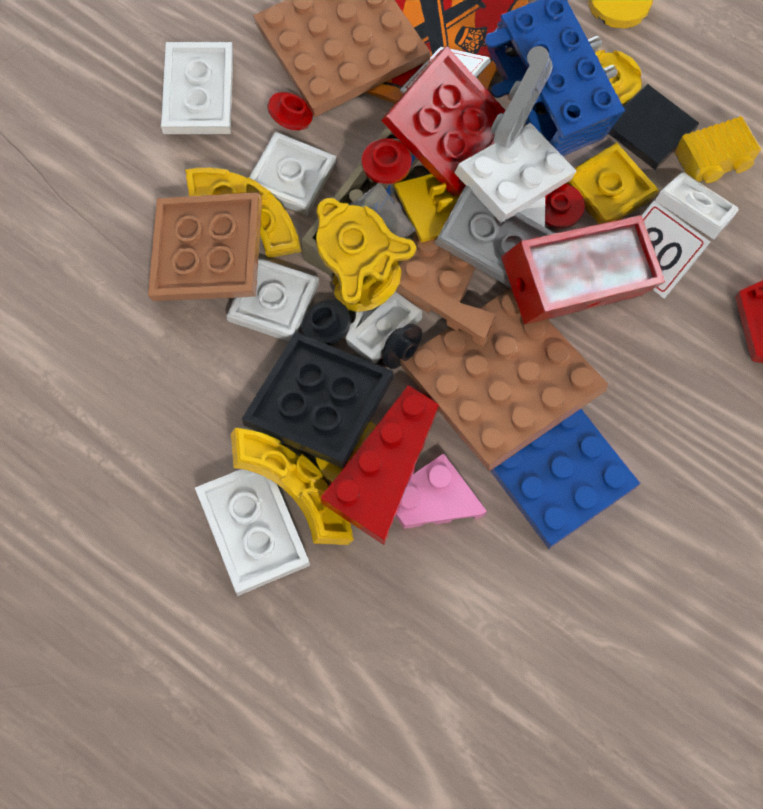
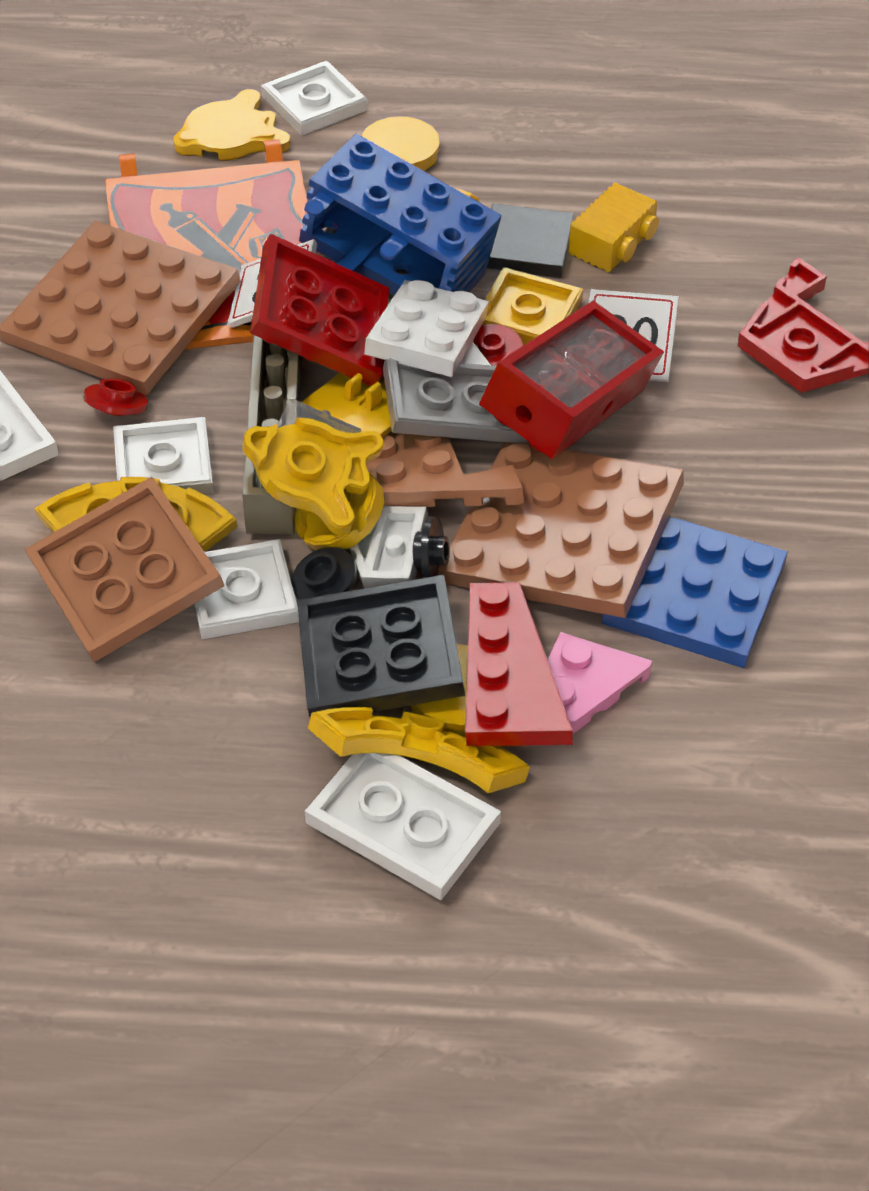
camera: 30 degrees left, 20 degrees down
(386, 161) = (281, 374): red piece -> none
(523, 97) = (391, 239): light grey plate -> none
(697, 205) = (635, 278): white tile -> none

